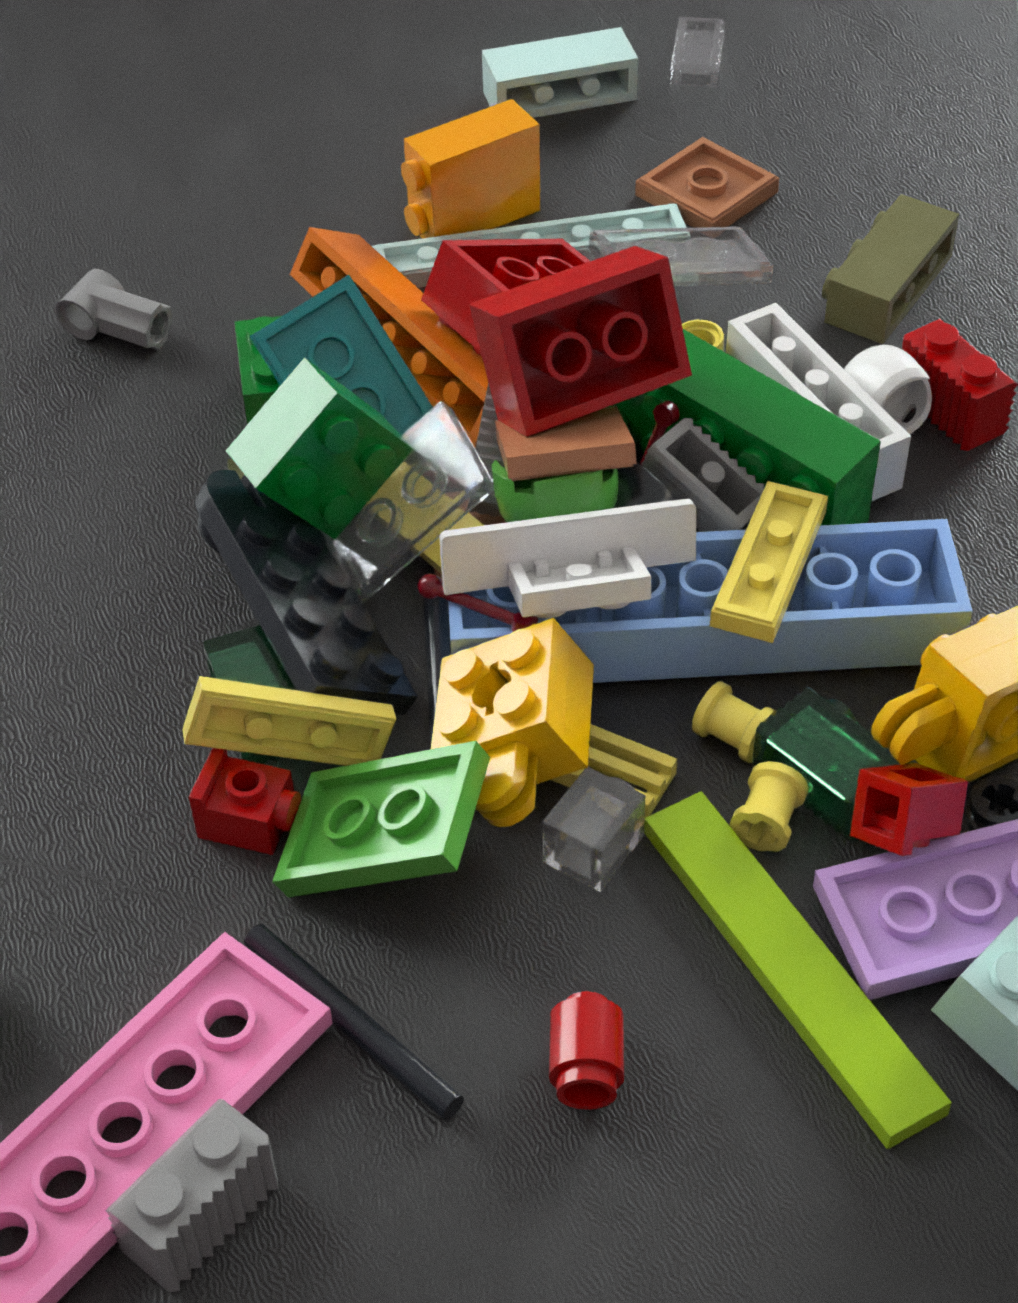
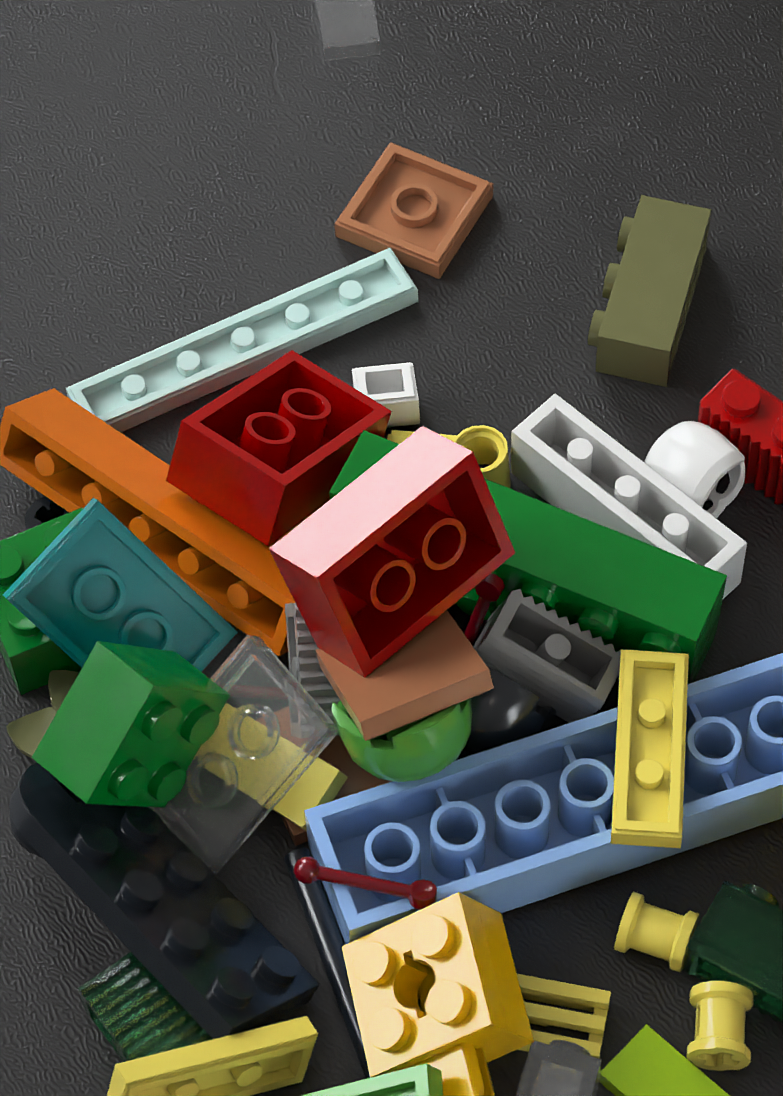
camera: 15 degrees left, 10 degrees up
(473, 172) = (157, 273): light orange brick -> none
(562, 73) = (201, 87): light aqua brick -> none
(571, 558) = (455, 813): white bracket -> none
(694, 254) = (420, 332): clear tile -> none

